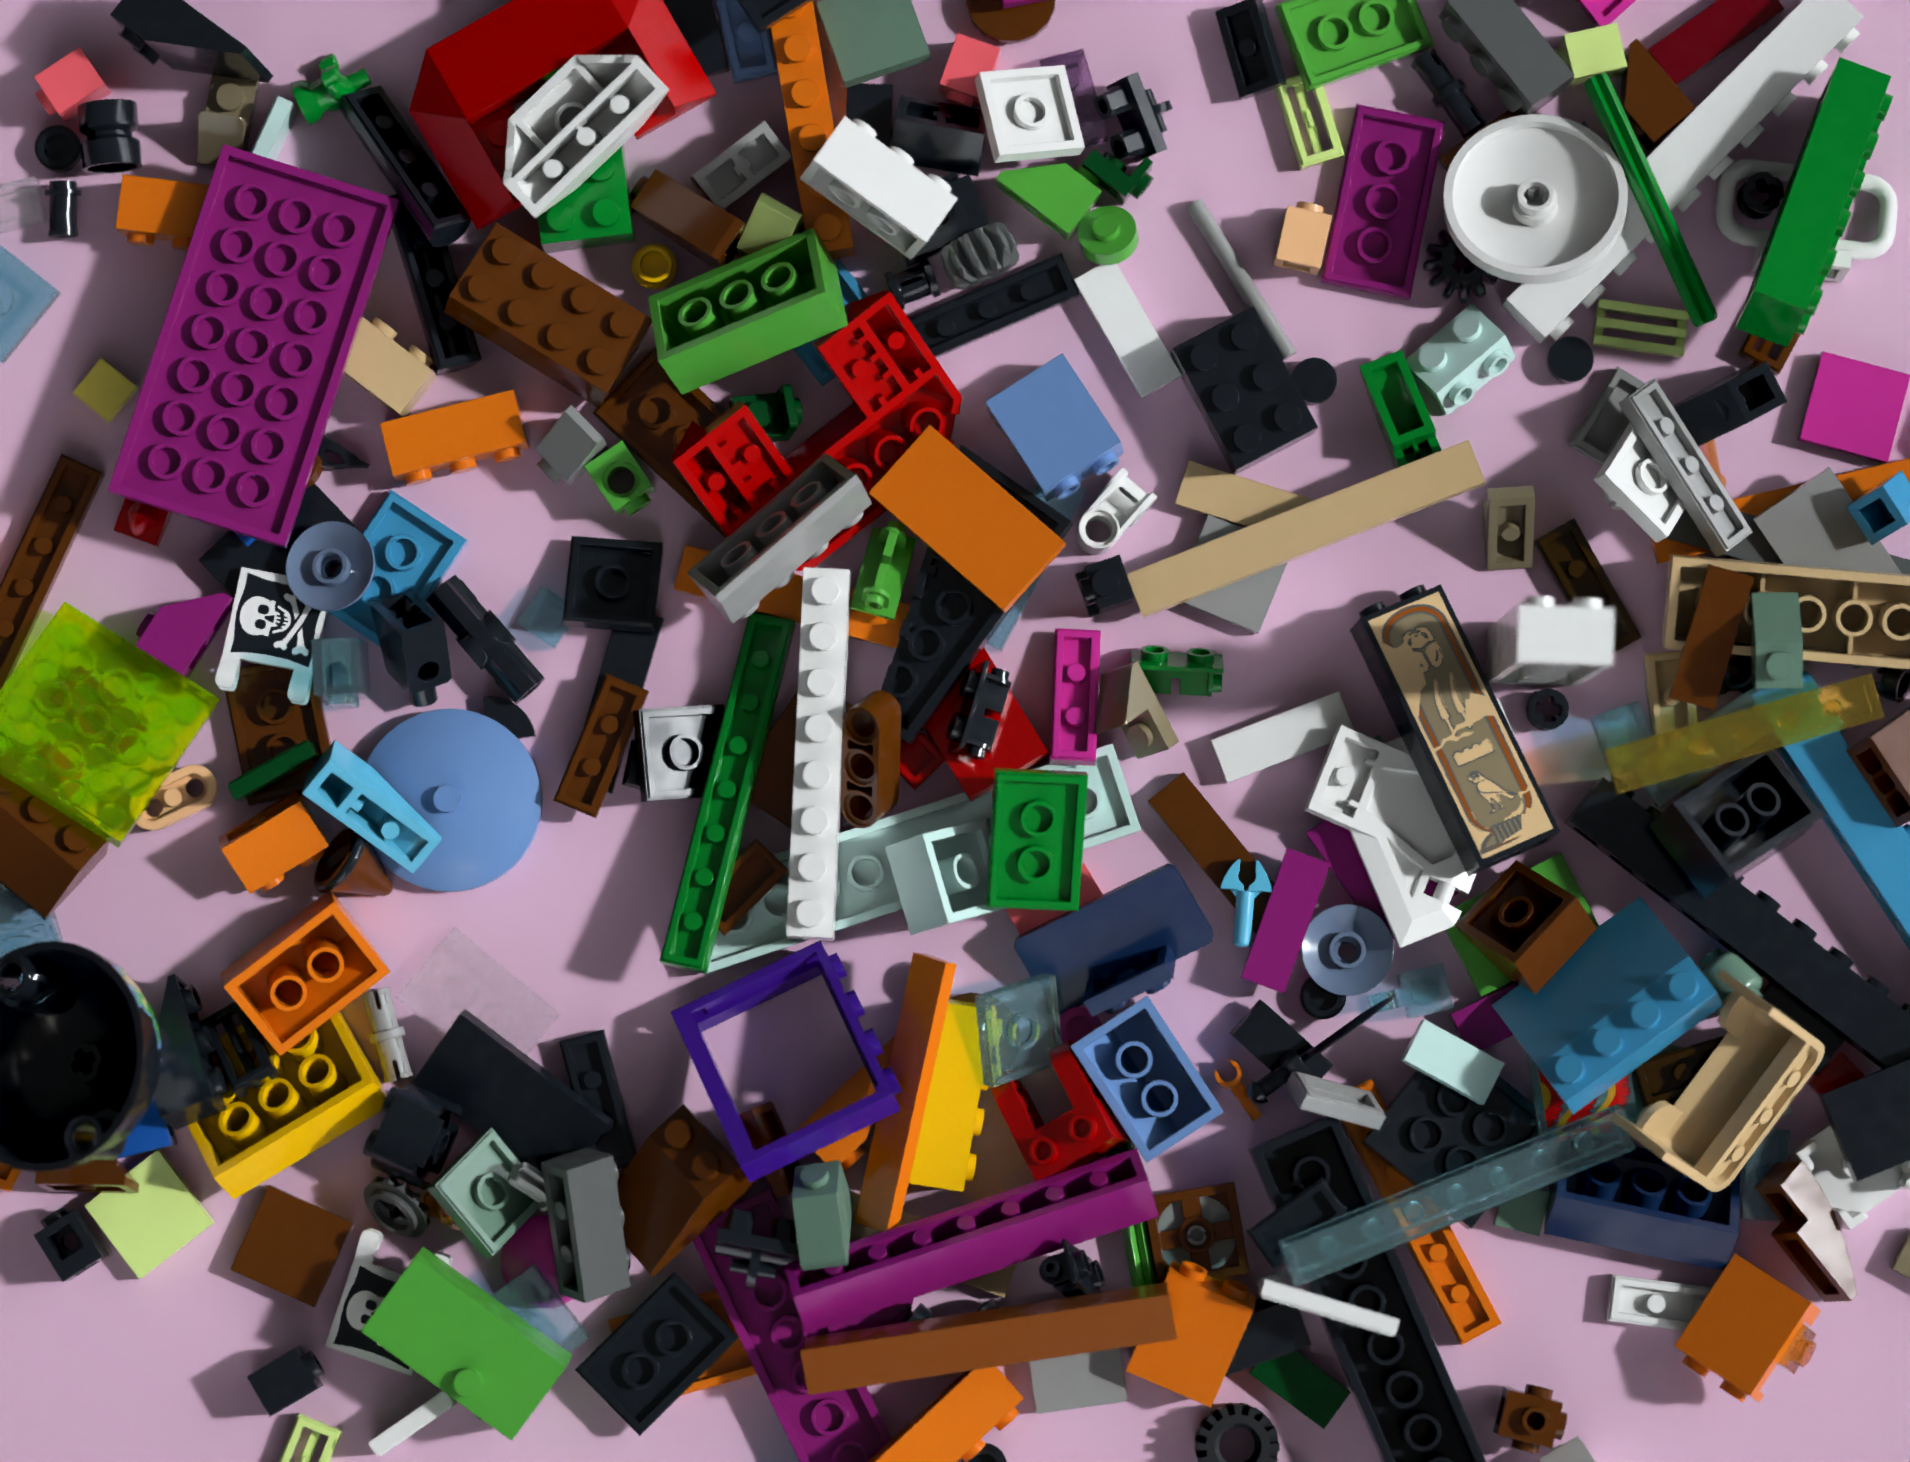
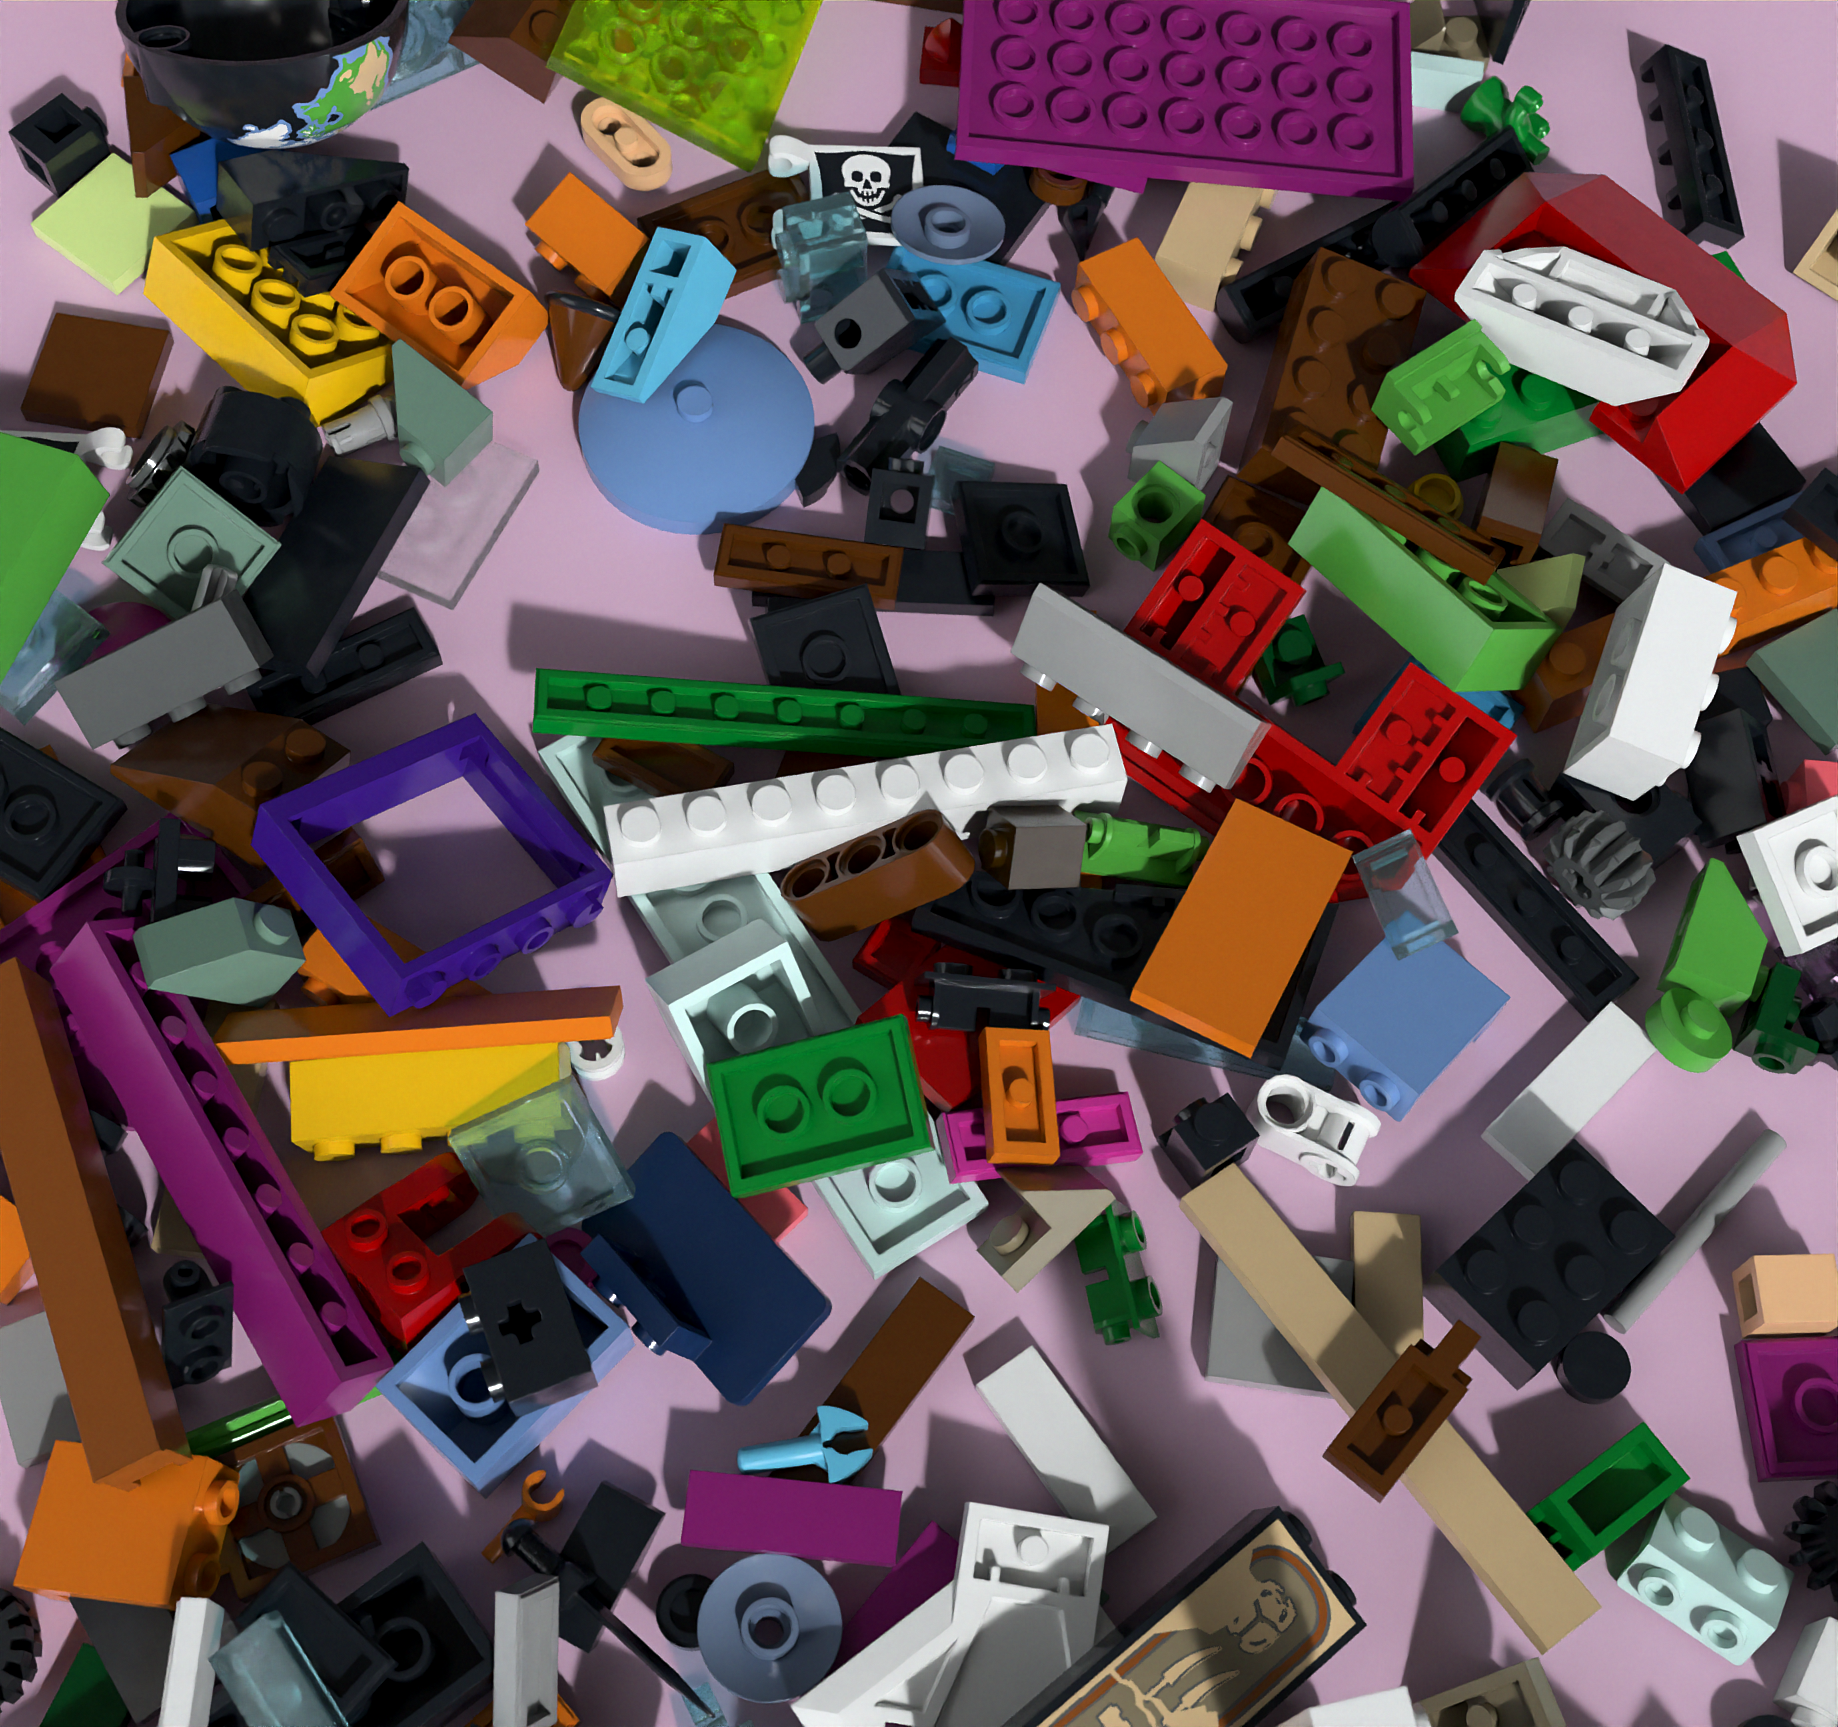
camera: 75 degrees right, 20 degrees down
(184, 630) = (824, 106): magenta slope -> none
(273, 770) = (674, 209): dark green tile -> none
(415, 997) = (436, 418): none -> sand green slope
(572, 667) = (893, 527): none -> black brick
(596, 245) = (1441, 387): none -> bright green hinge
(685, 319) = (1389, 503): none -> reddish brown tile
(879, 647) = (1032, 846): none -> dark brown brick
(975, 402) = (1404, 894): none -> clear light blue tile
(1053, 705) = (1018, 1096): none -> orange plate
(1163, 1041) = (519, 1287): none -> black brick
(1323, 521) = (1403, 1412): none -> reddish brown hinge

